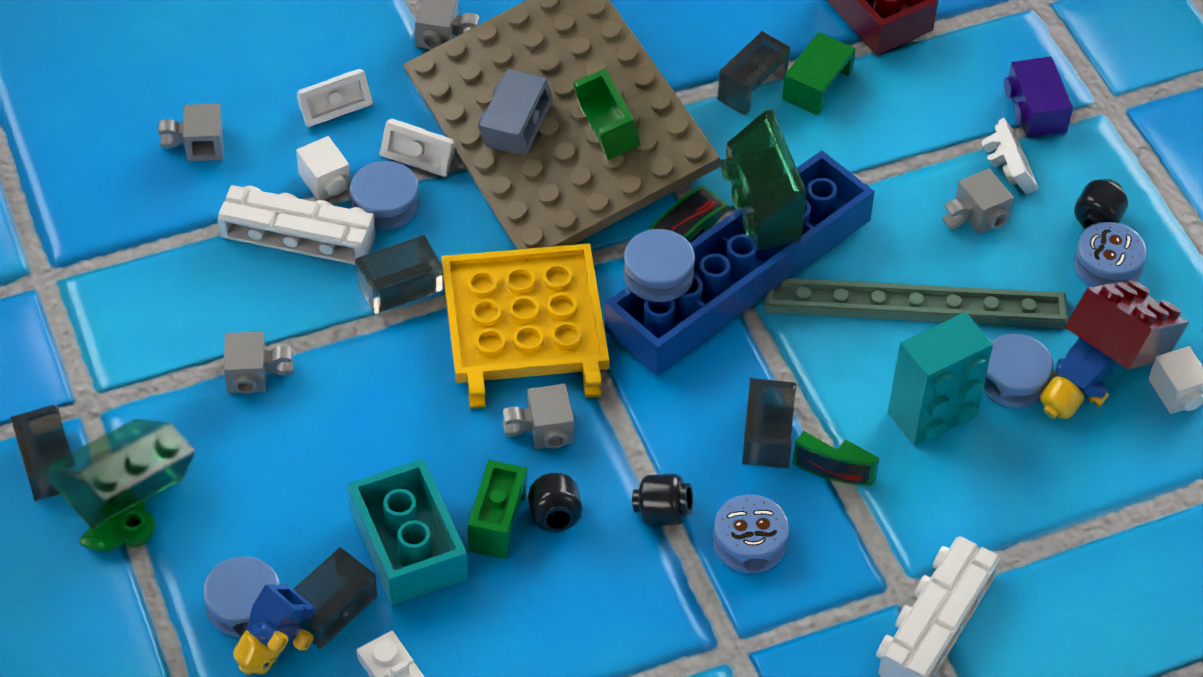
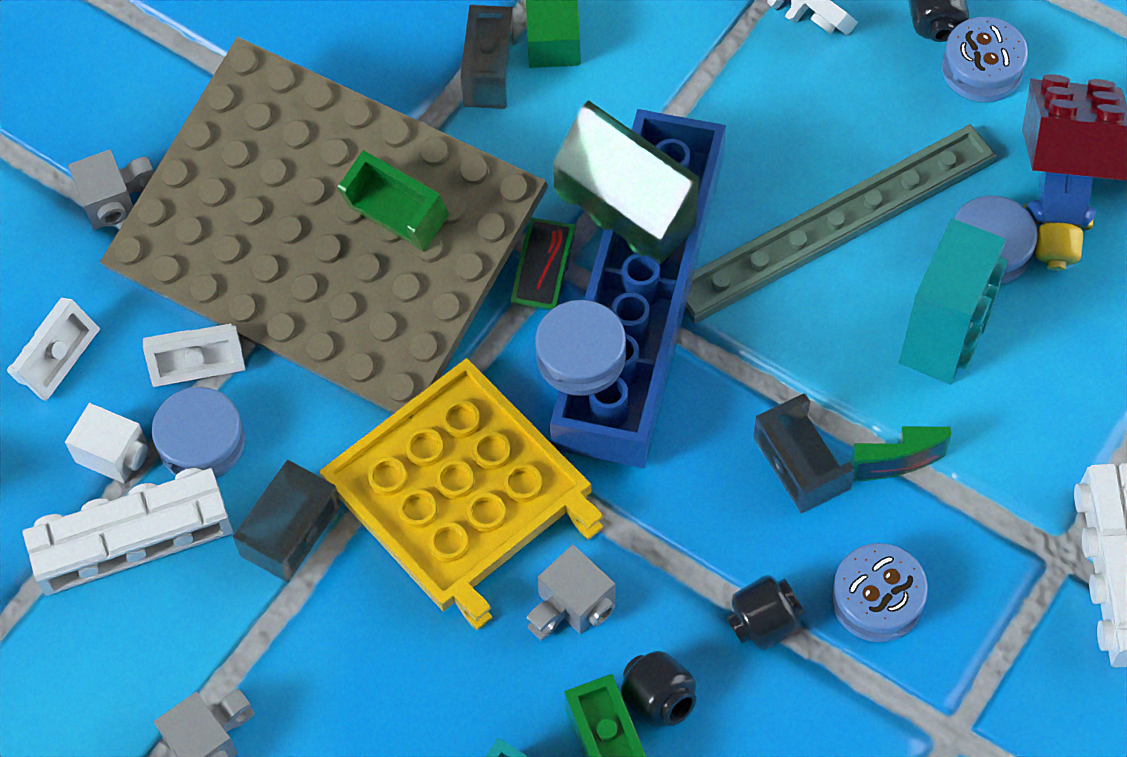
camera: 30 degrees left, 10 degrees up
(515, 112) = (283, 253): sand blue brick -> none
(981, 202) = (821, 72): light grey brick -> none

